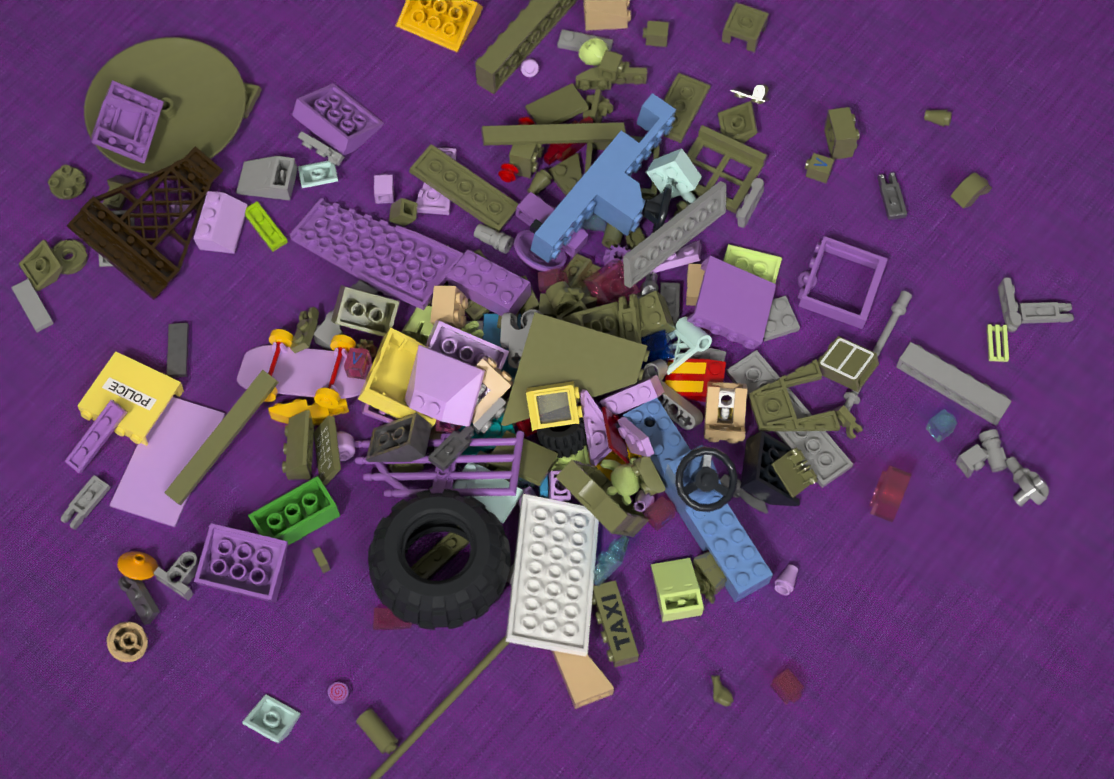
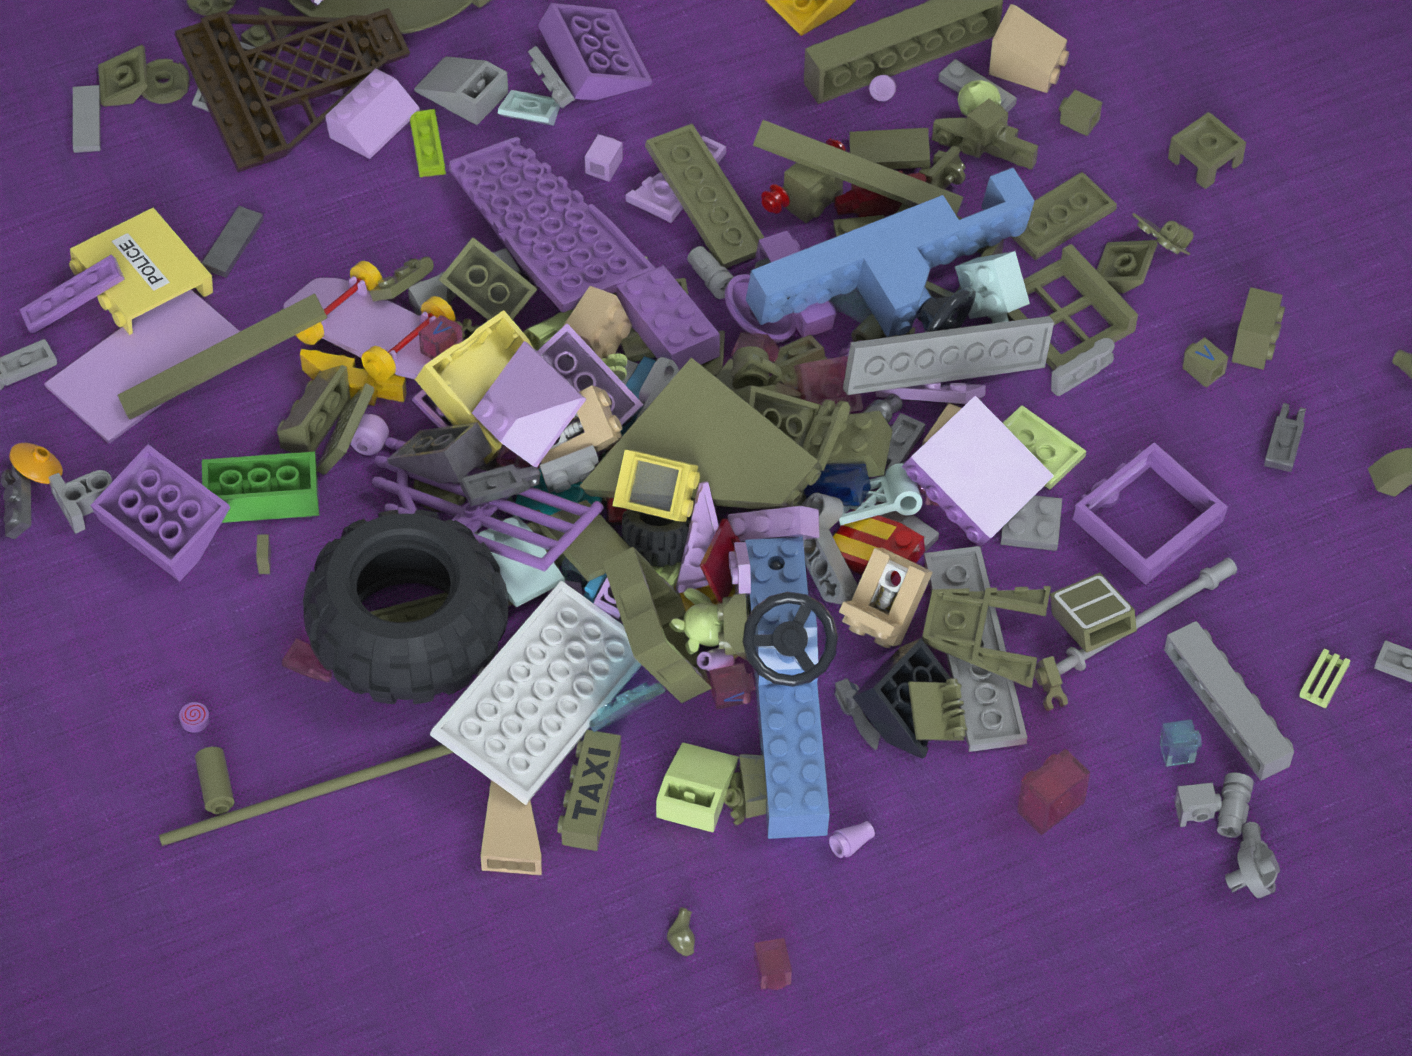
camera: 25 degrees right, 10 degrees down
(272, 719) = (95, 709): light aqua slope -> none
(403, 212) = (610, 192): olive brick -> none
(539, 182) = (813, 230): olive cone -> none
(1009, 305) = (1369, 639): light grey hinge -> none

